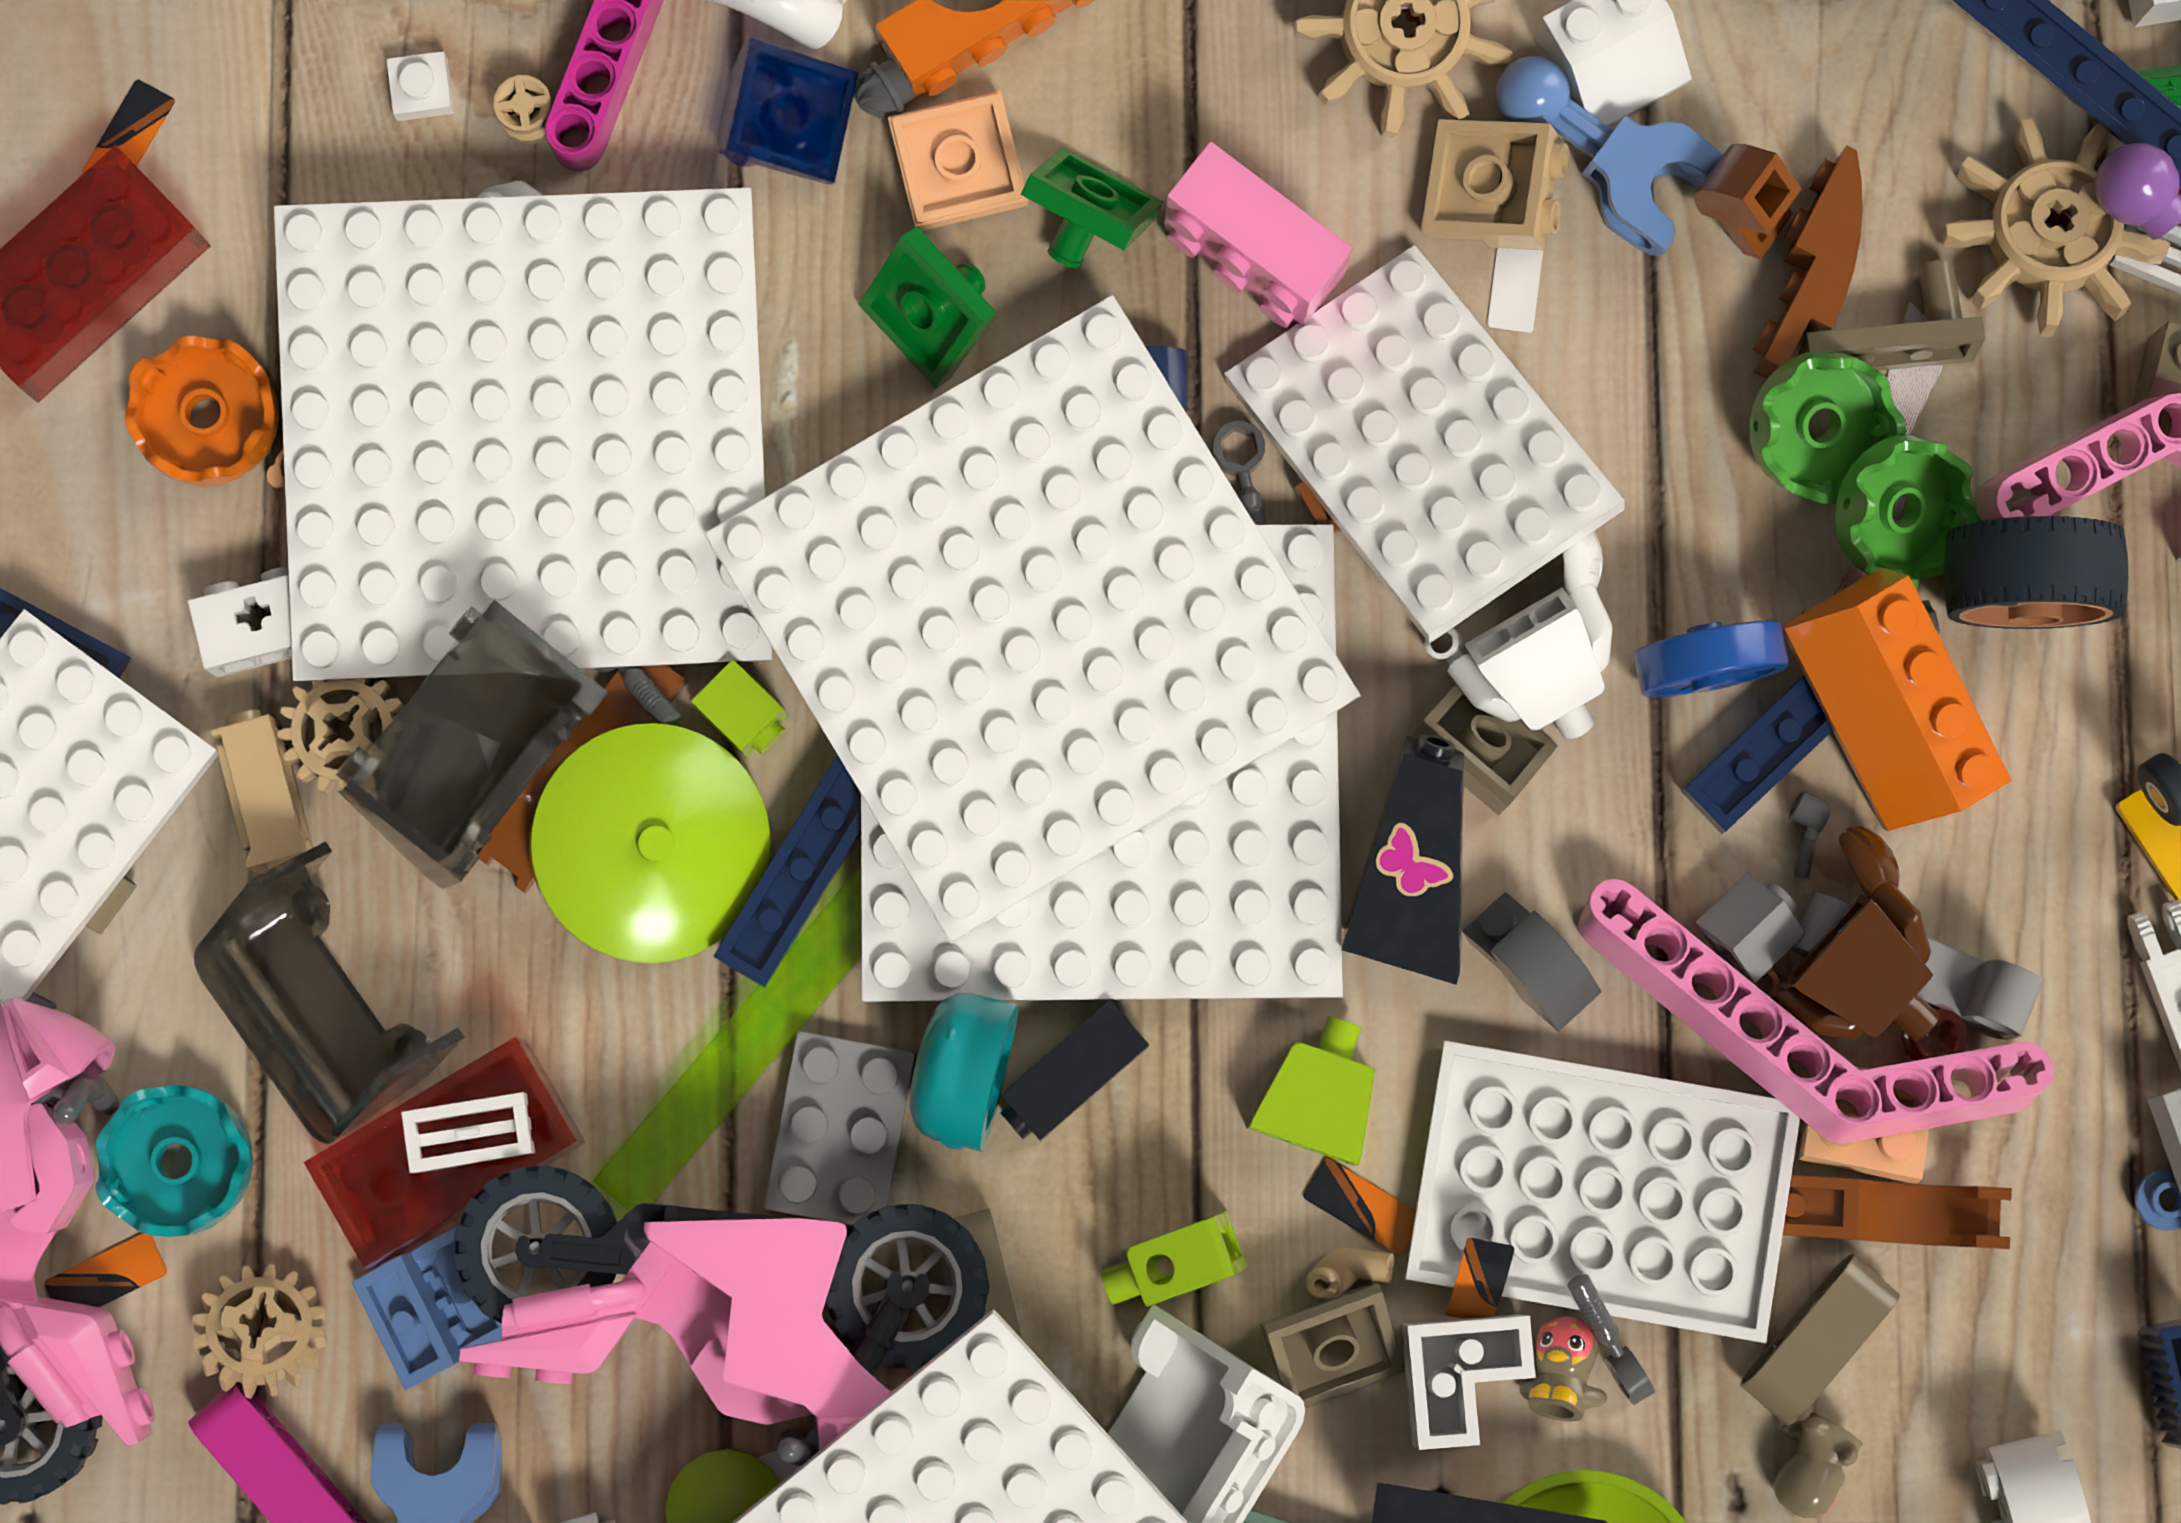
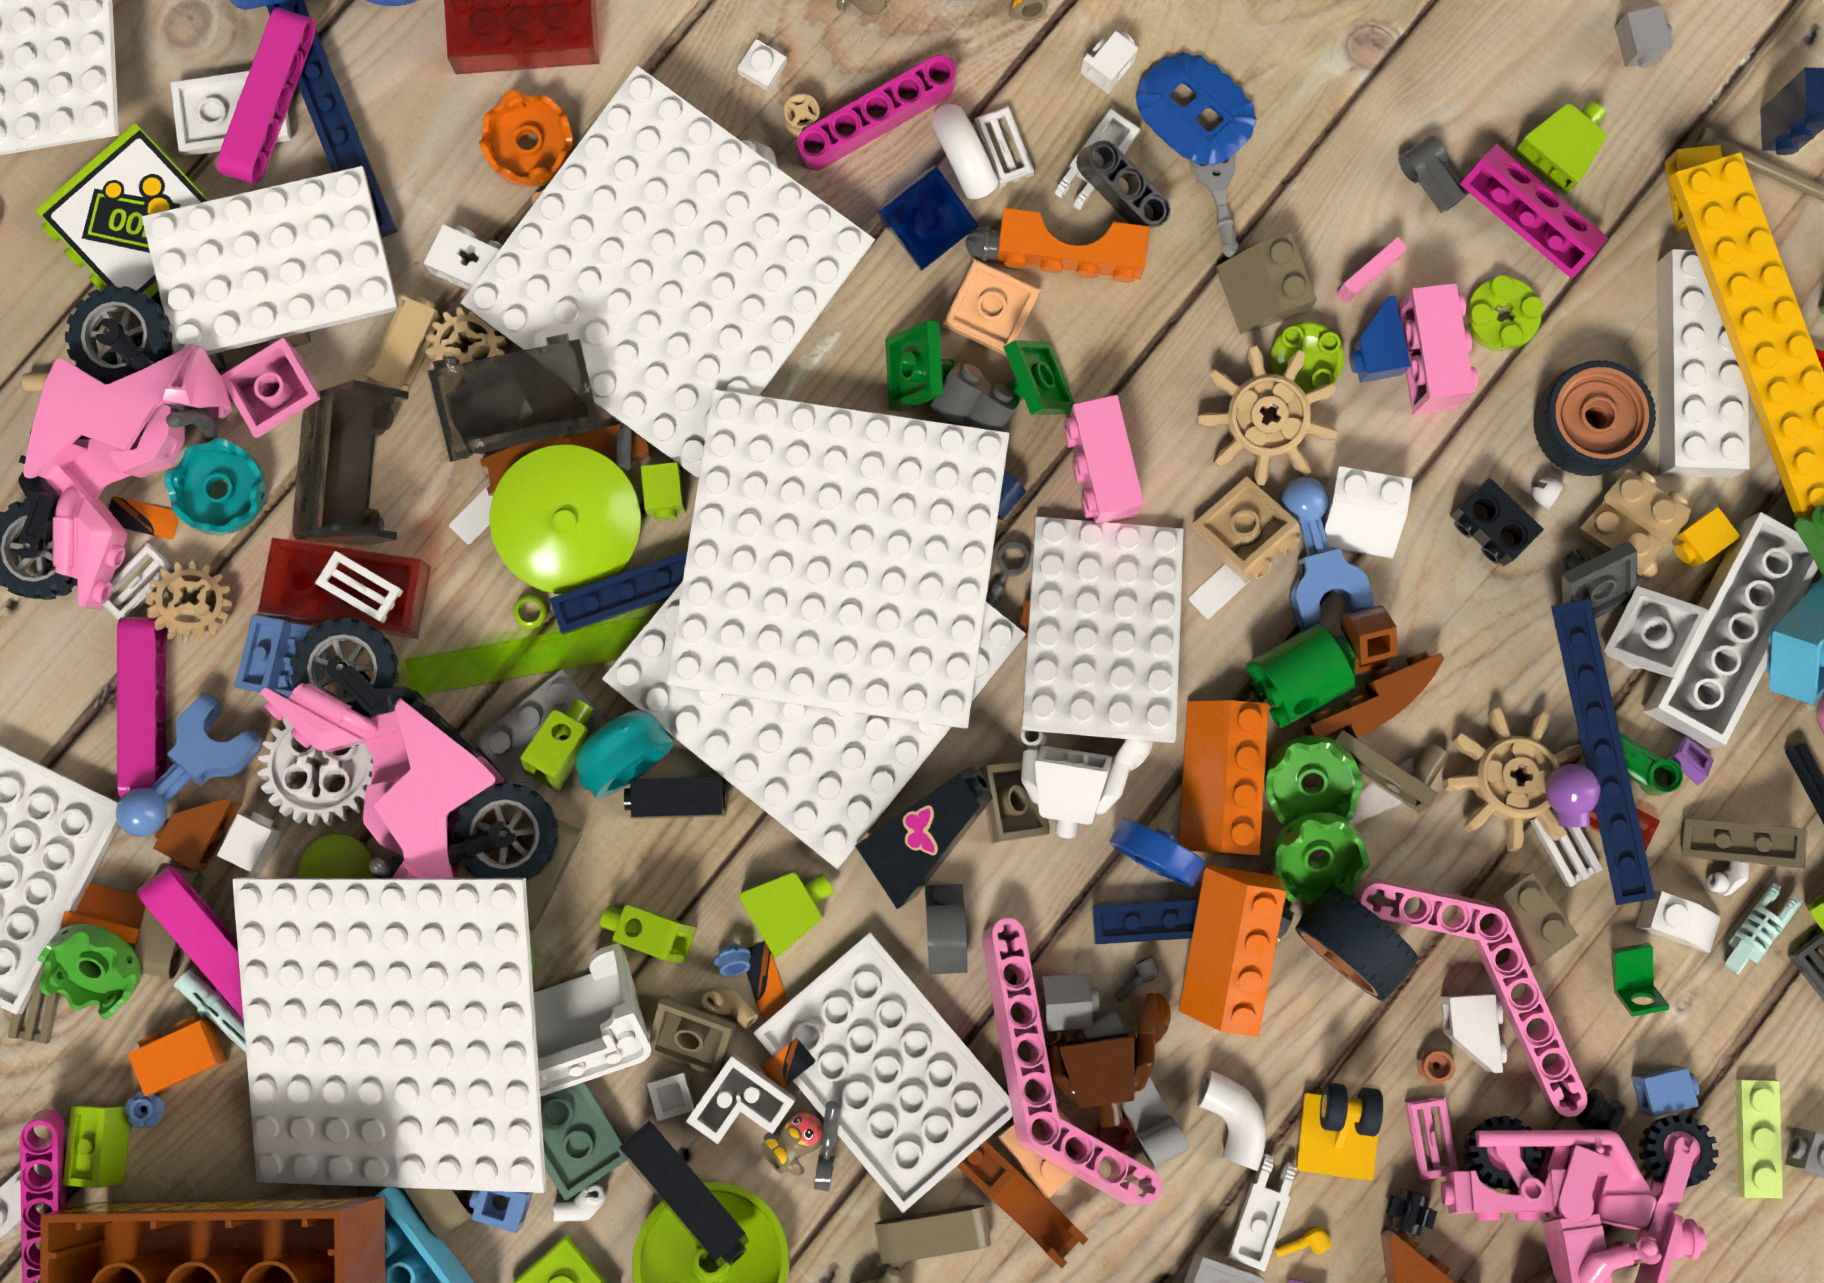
camera: 40 degrees right, 0 degrees up
(142, 978) = (271, 386): none -> bright pink slope
(191, 1367) = (126, 572): none -> white tile
(529, 933) = (473, 518): none -> white sticker
(554, 1427) = (287, 763): none -> white gear
(713, 1009) = (517, 611): none -> lime piece
(883, 1144) = (552, 759): none -> lime torso
(1036, 289) = (974, 401): none -> dark grey brick
(1306, 1212) = (733, 960): none -> medium blue plate
(1369, 1439) = (671, 1096): none -> white plate
(1704, 303) = (1302, 673): none -> green cylinder
(1711, 505) = (1223, 777): none -> orange slope
(2065, 892) = (1242, 1115): none -> white cylinder

